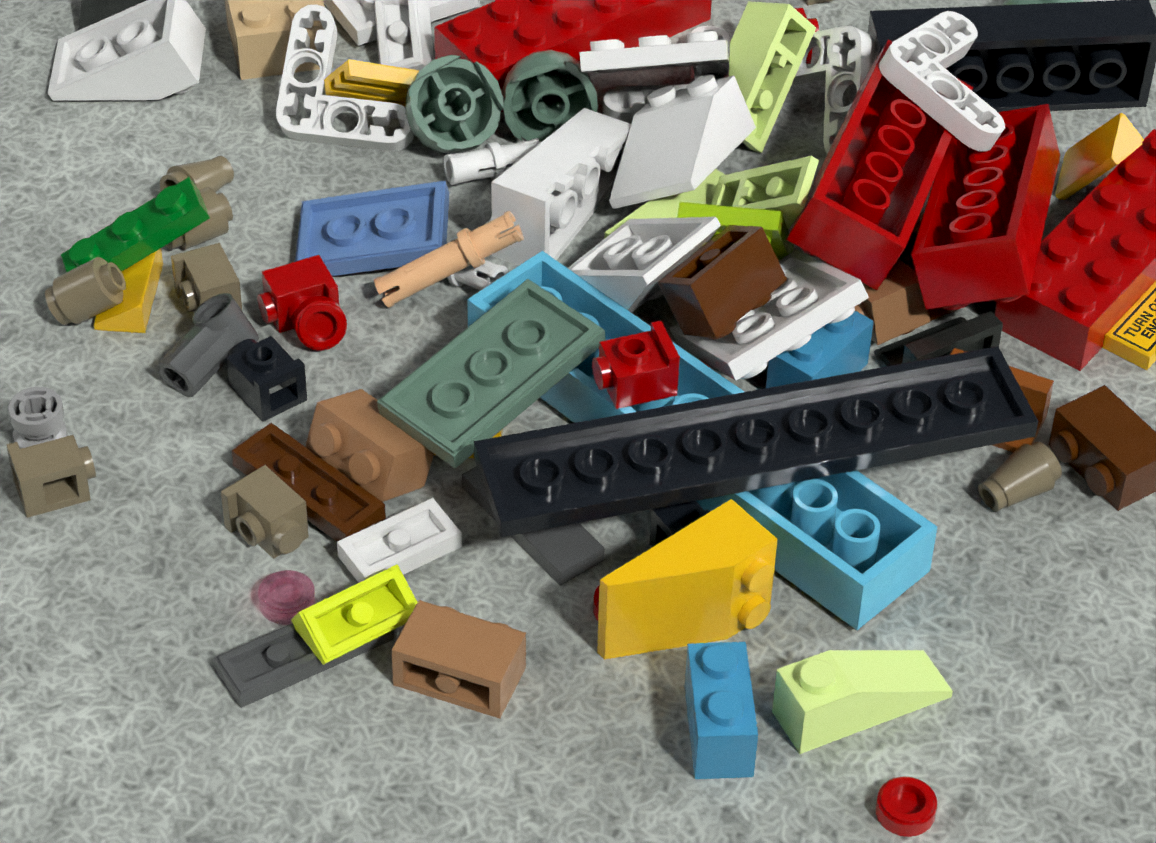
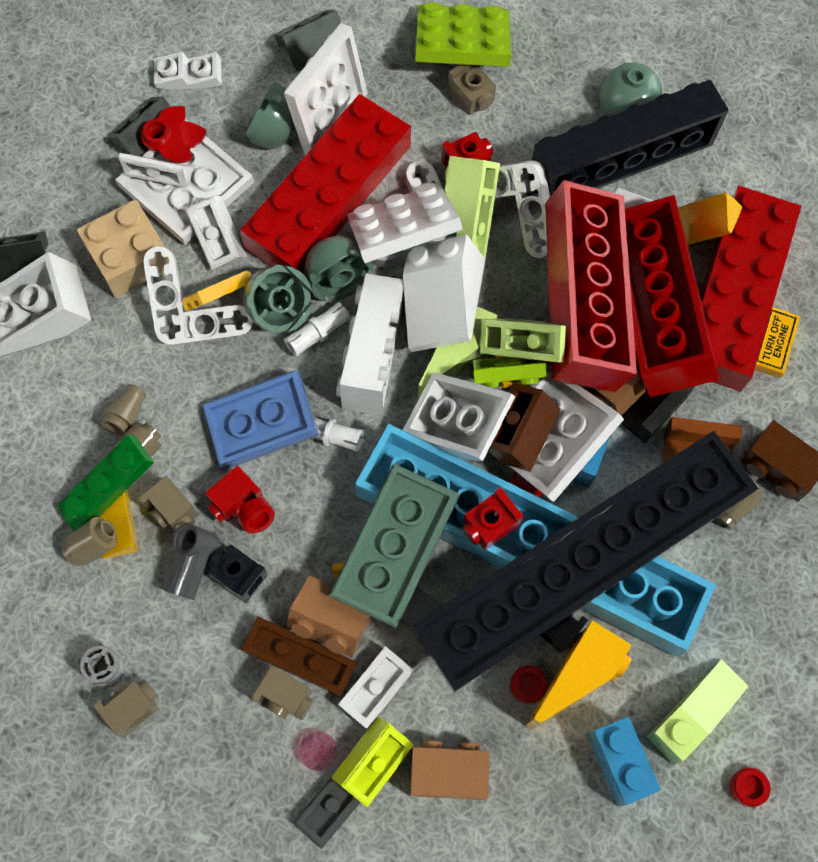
camera: 20 degrees left, 25 degrees up
(466, 250) = (335, 432): light nougat pin -> none
(934, 87) = (599, 207): white beam -> none

